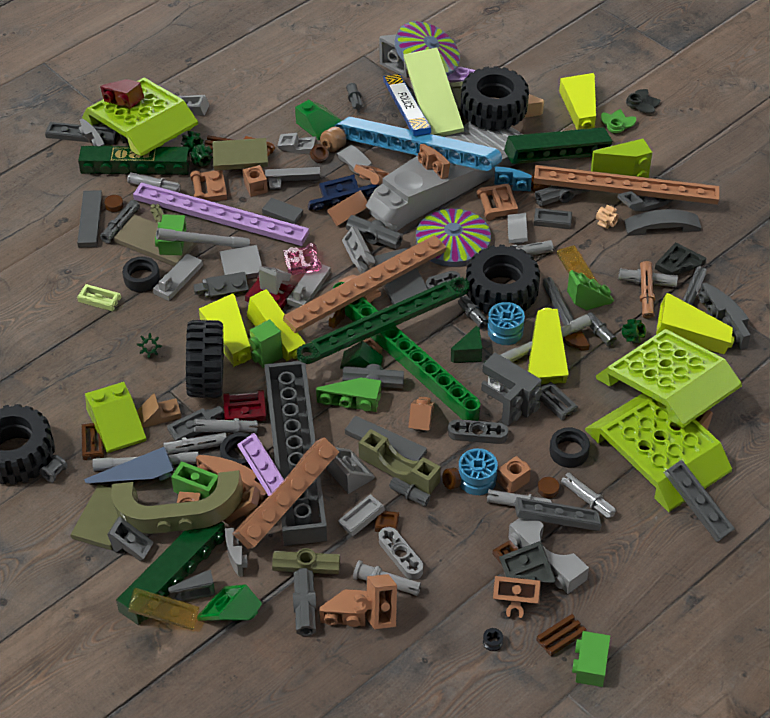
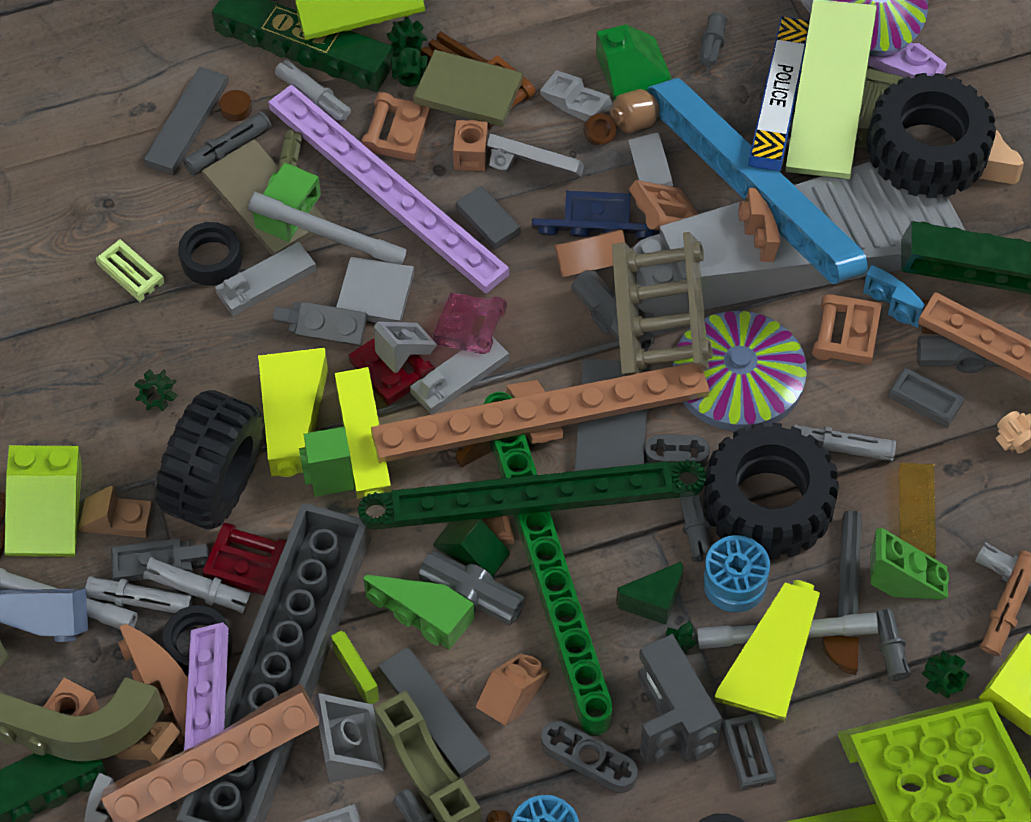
camera: 25 degrees right, 10 degrees up
(194, 479) = (94, 666): bright green brick -> none
(333, 433) = (355, 667): none -> lime tile
(357, 249) = (567, 339): light grey hinge -> none
(385, 213) = (630, 294): none -> dark tan fence
(517, 228) = (852, 395): light grey slope -> none

